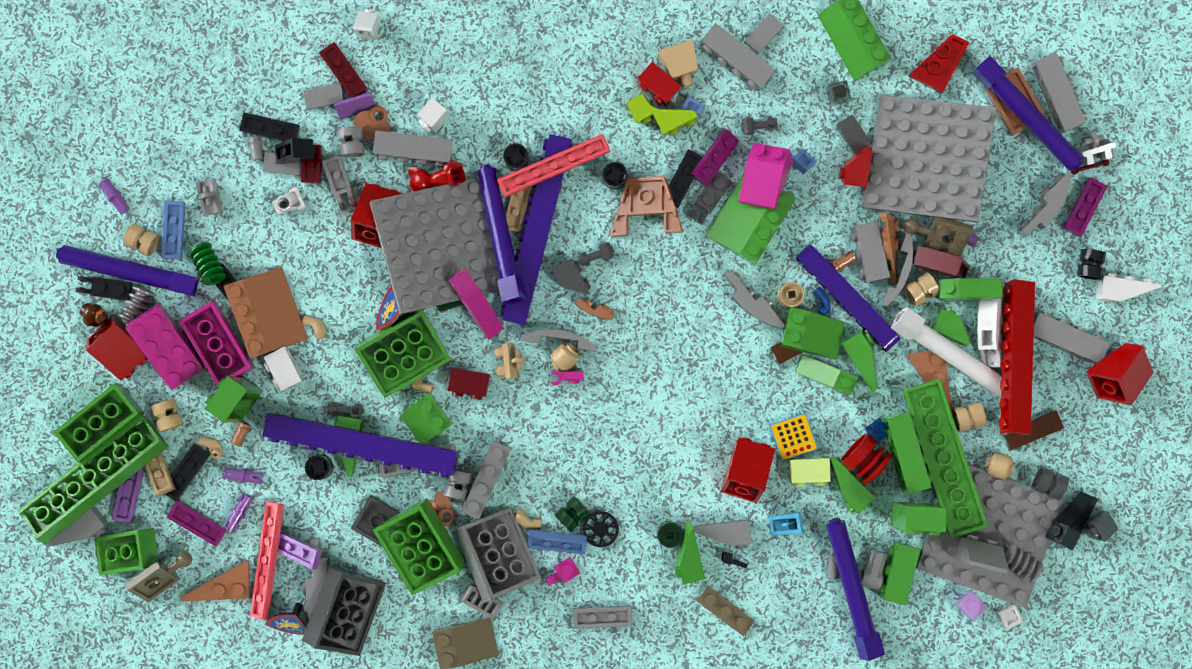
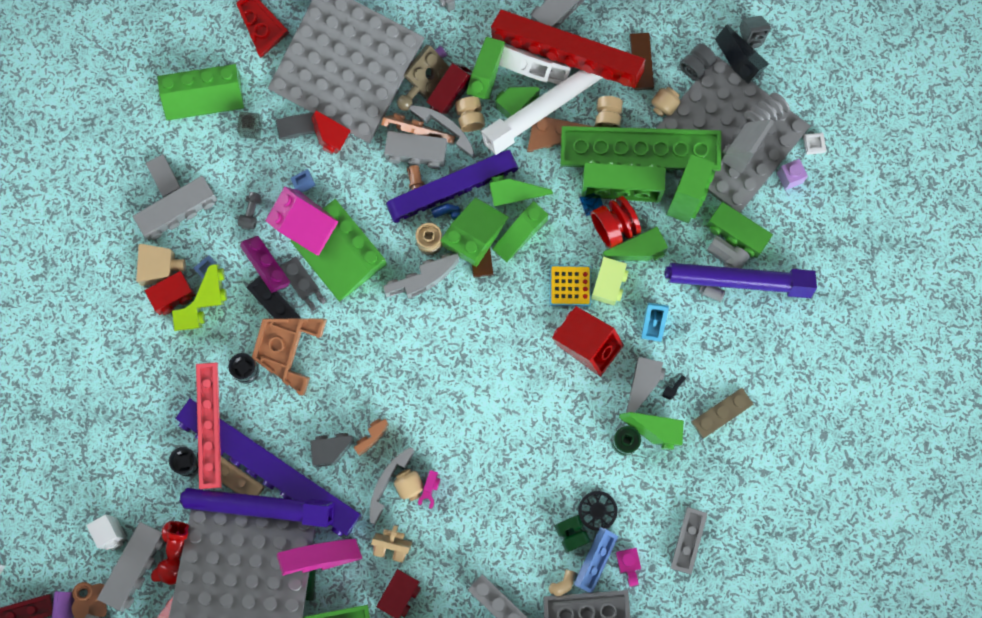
camera: 70 degrees left, 10 degrees down
(606, 251) = (317, 405): dark grey bar -> none

